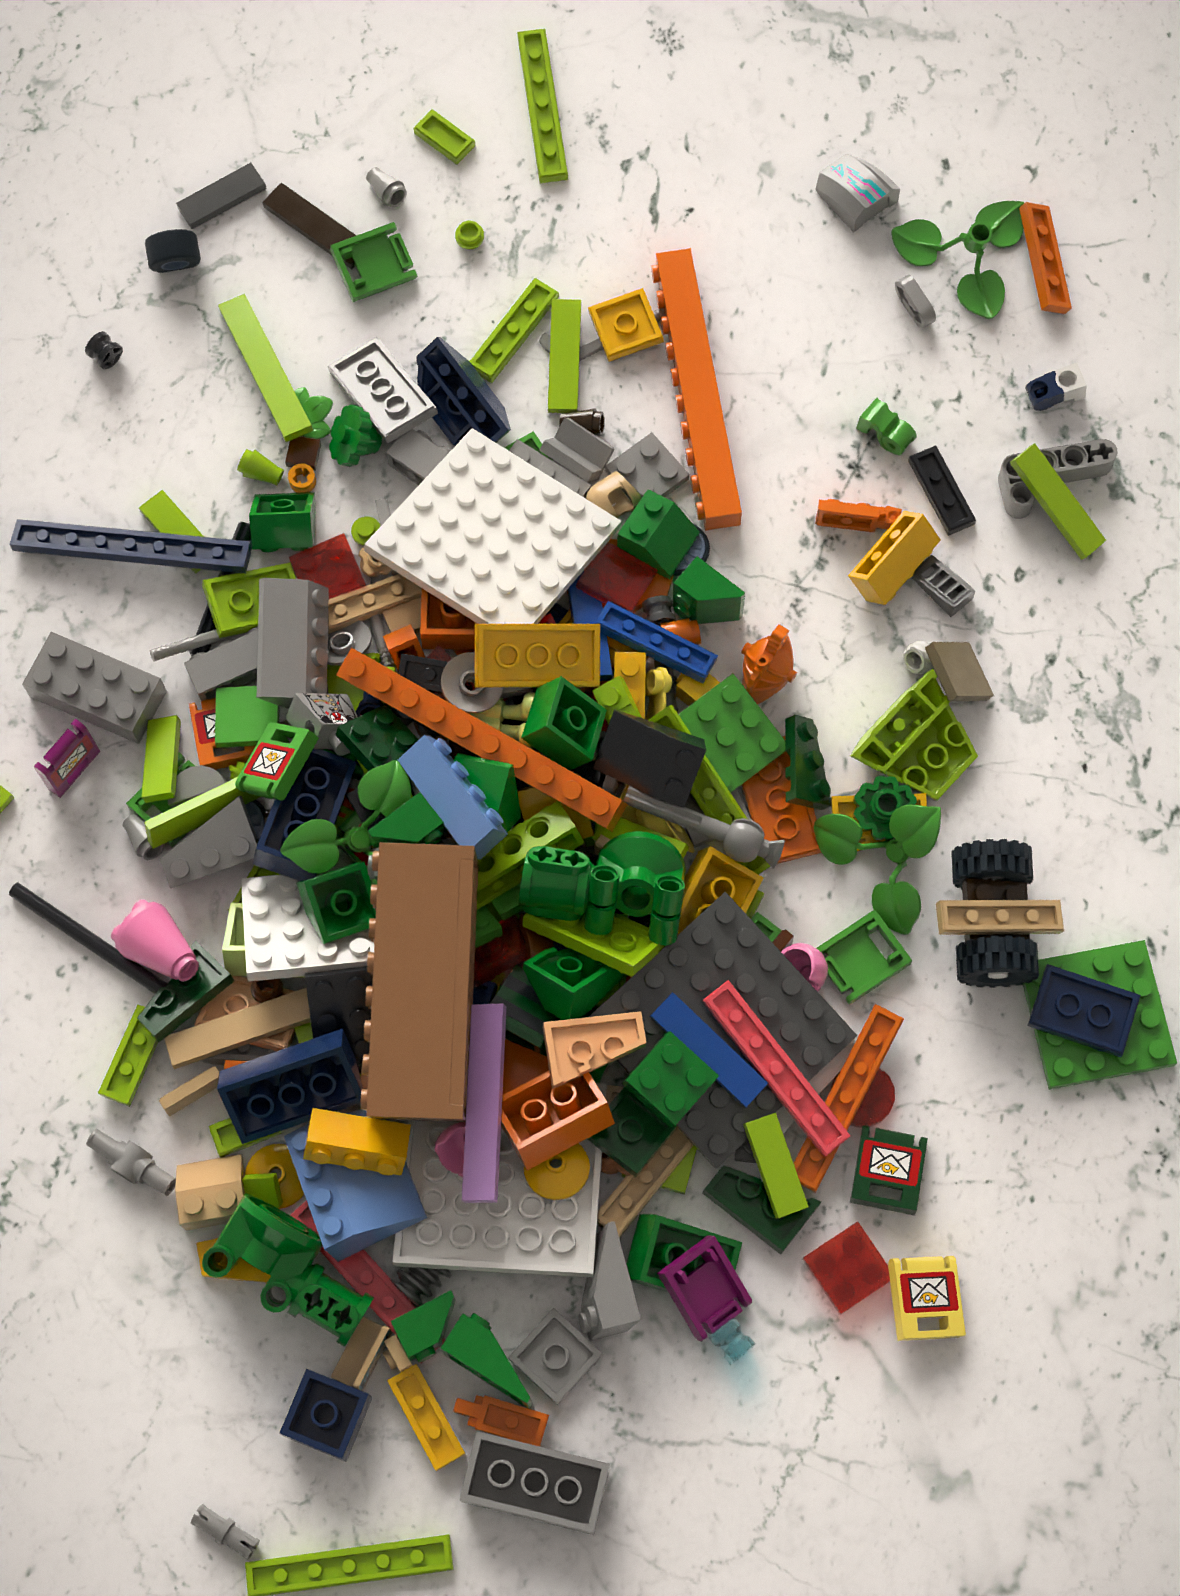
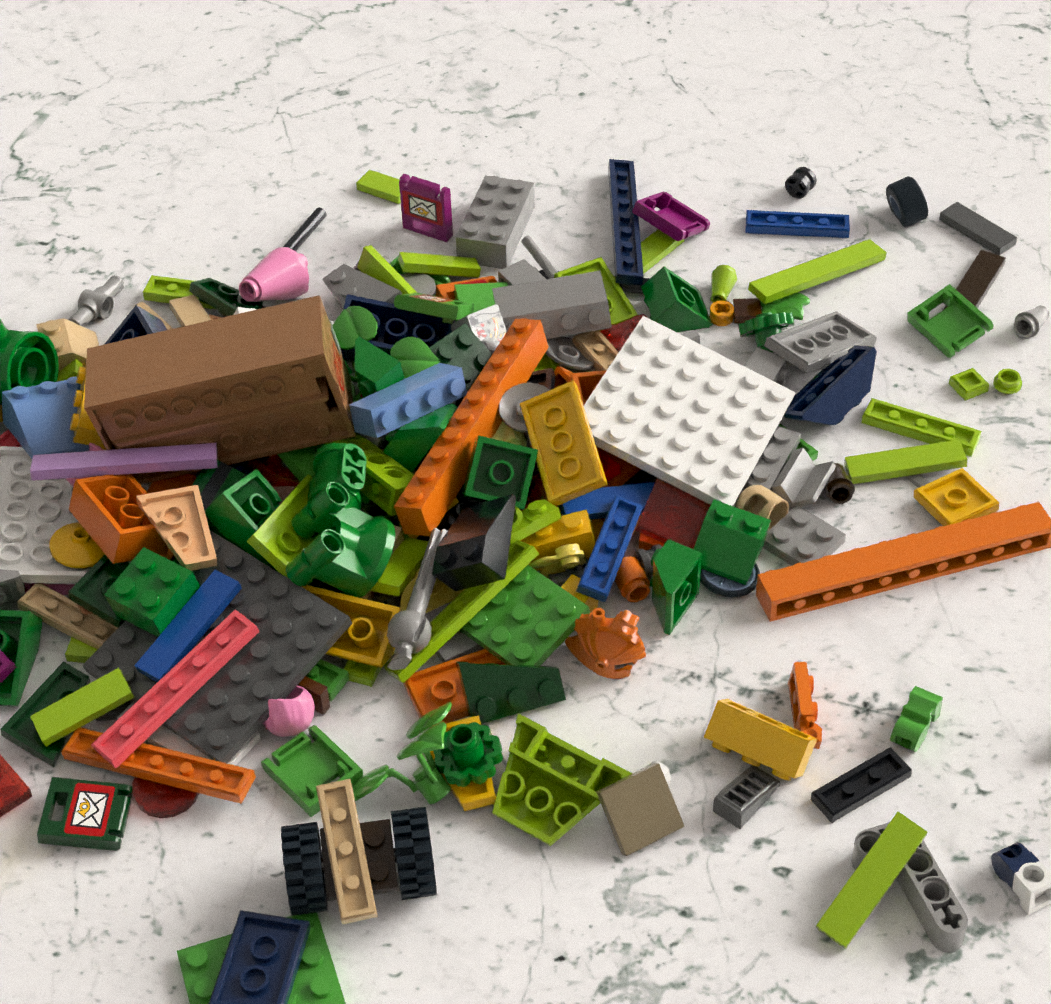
camera: 80 degrees right, 25 degrees down
(140, 494) = (672, 218): none -> magenta container
(167, 372) = (797, 224): none -> blue tile
(461, 271) = (969, 384): none -> lime tile

